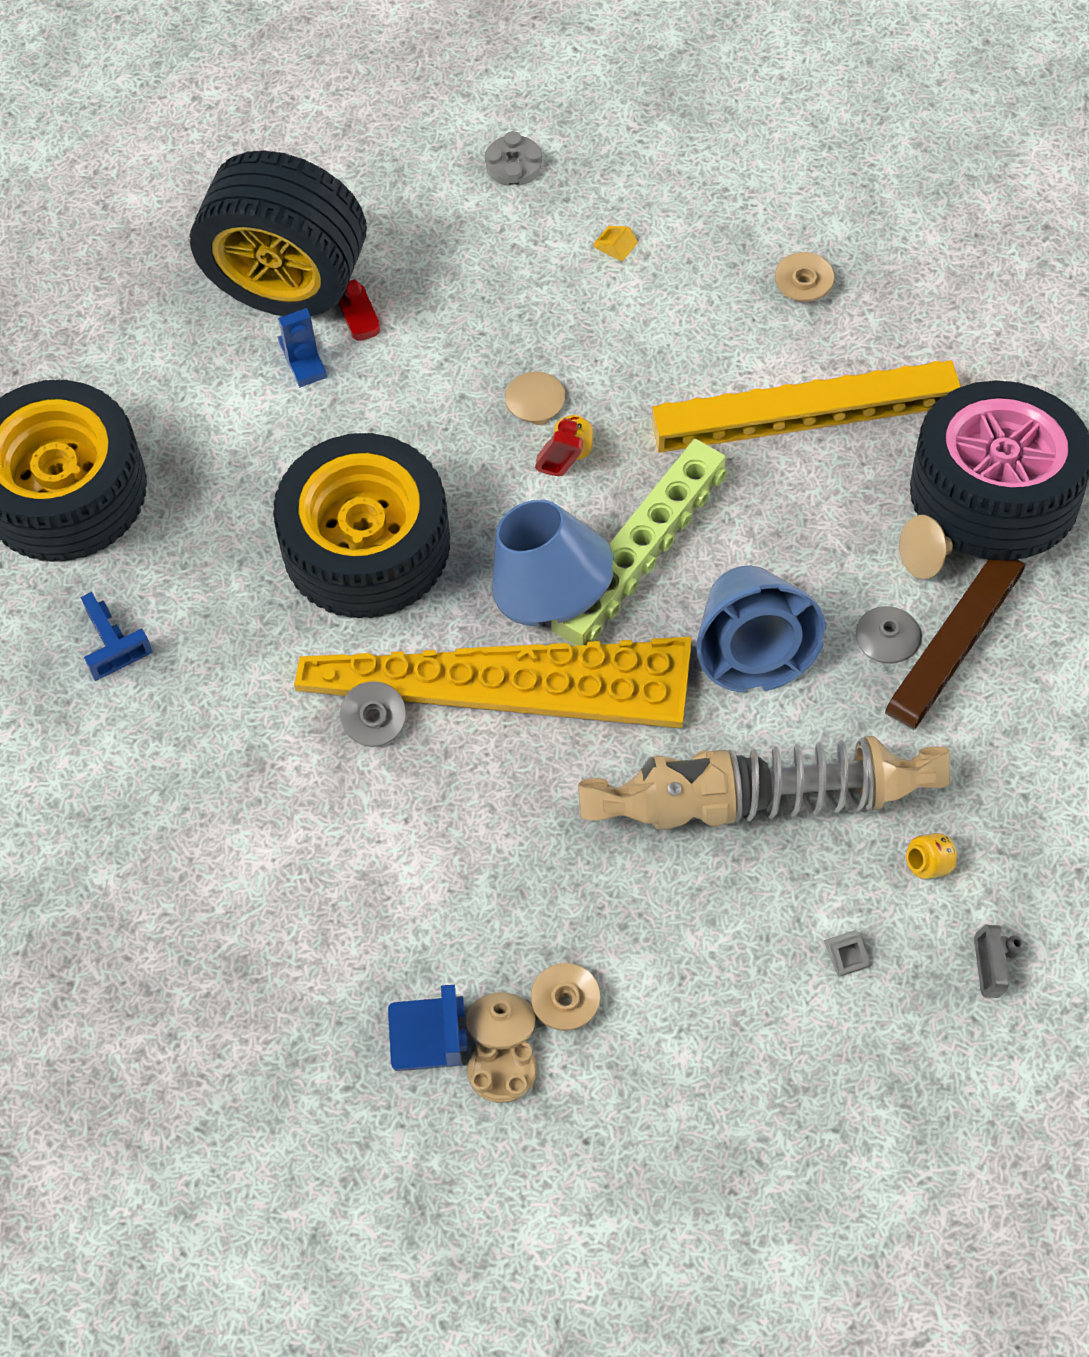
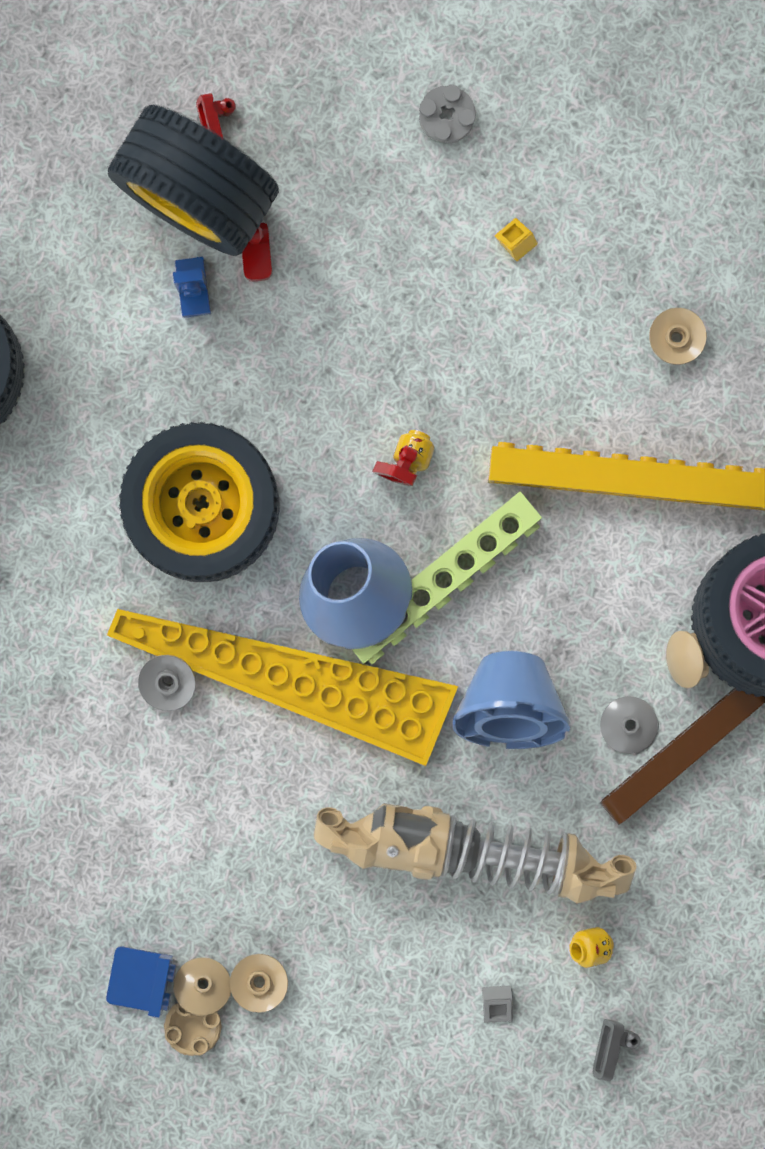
camera: 10 degrees right, 25 degrees up
(535, 397) = (393, 393): tan dish -> none

